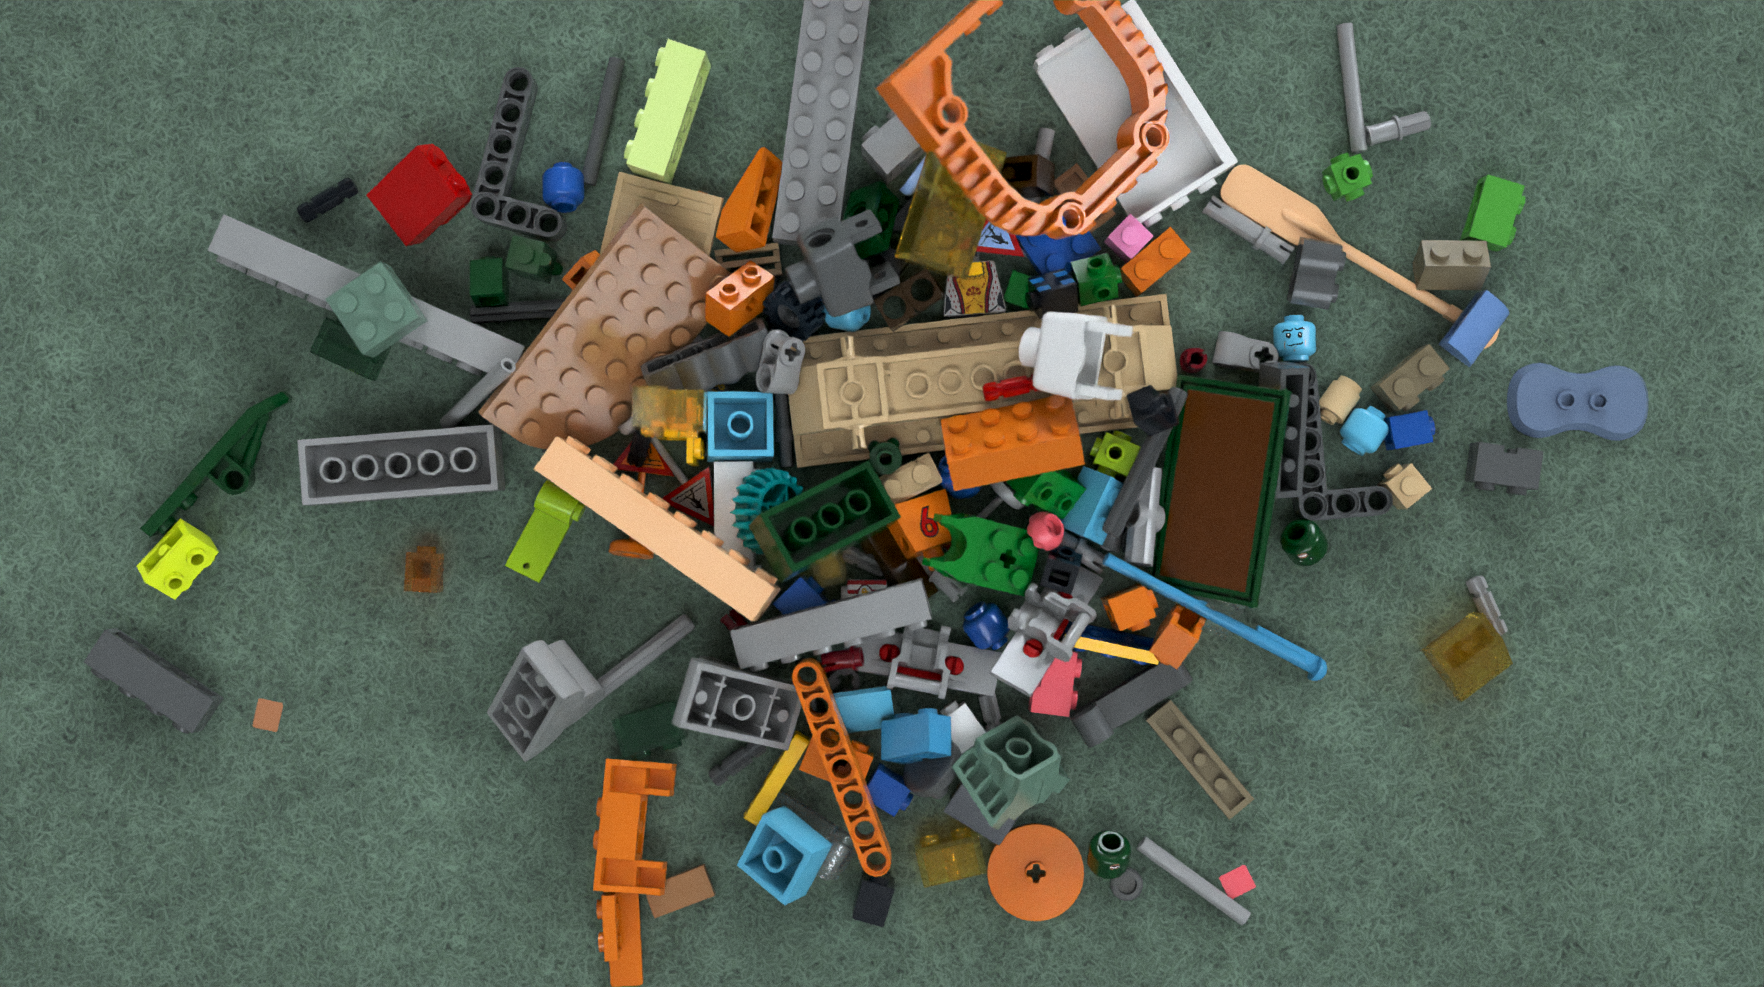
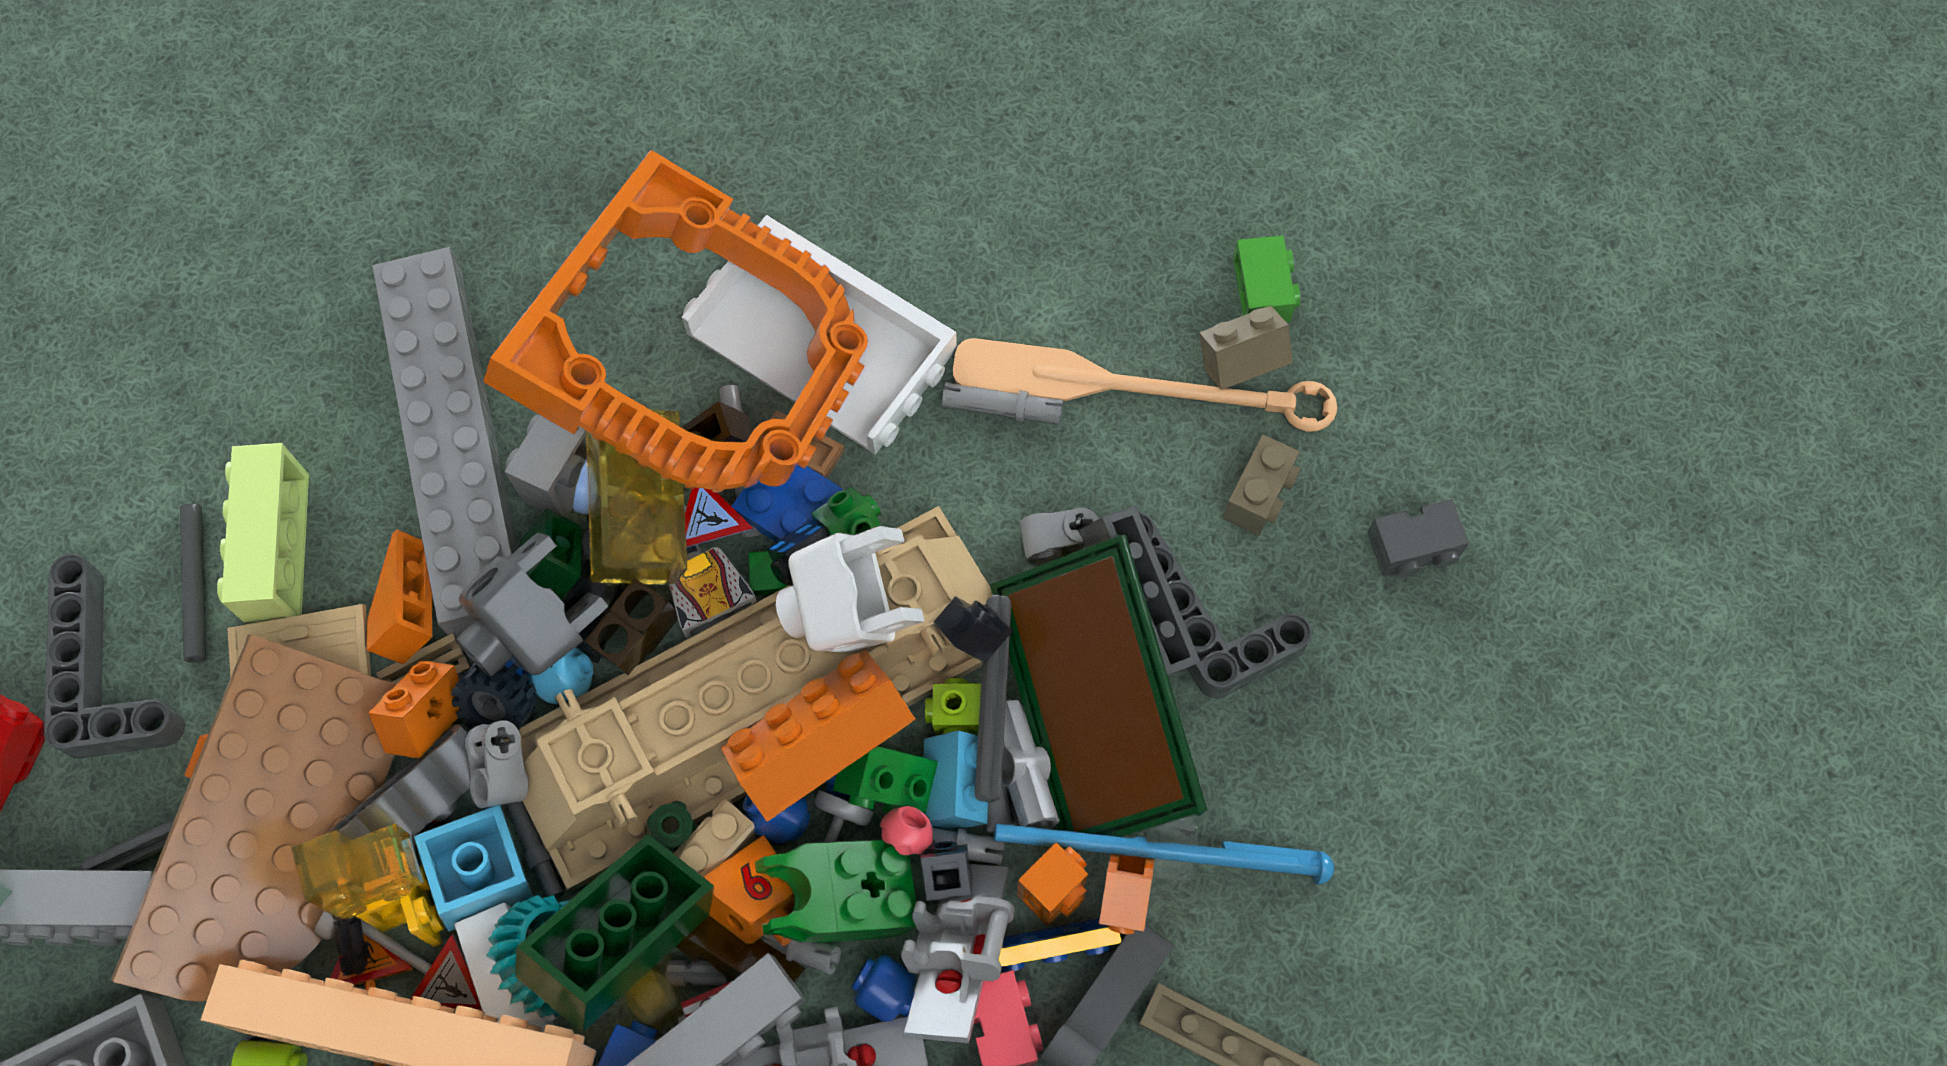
camera: 25 degrees left, 20 degrees down
(478, 393) = (110, 950): light grey piece -> none
(489, 282) = (95, 822): dark green brick -> none
(532, 259) = (139, 767): dark green brick -> none
(563, 187) = (162, 673): blue head -> none
(1008, 388) = (791, 671): red axle -> none
(1128, 238) = (868, 463): bright pink brick -> none
(1154, 261) = (909, 476): orange brick -> none
(1185, 358) = (1006, 560): dark red pin -> none
(1295, 339) = (1108, 491): medium azure head -> none
(1303, 542) = (1229, 718): dark green head -> none
(1315, 273) = (1099, 416): dark grey brick -> none
(1337, 182) = (1086, 304): bright green brick -> none
(1339, 400) = (1193, 542): tan brick -> none
(1351, 88) = (1050, 220): light grey piece -> none
(1364, 430) = (1238, 563): medium azure head -> none
(1397, 128) = (1117, 239): light grey axle -> none
(1405, 485) = (1316, 602): tan brick -> none
(1409, 430) = (1287, 543): blue brick -> none
(1468, 655) = (1493, 770): clear yellow slope -> none
(1475, 327) = (1307, 401): medium blue brick -> none
(1485, 603) = (1483, 706): light grey axle -> none
(1602, 402) = (1487, 429): sand blue plate -> none

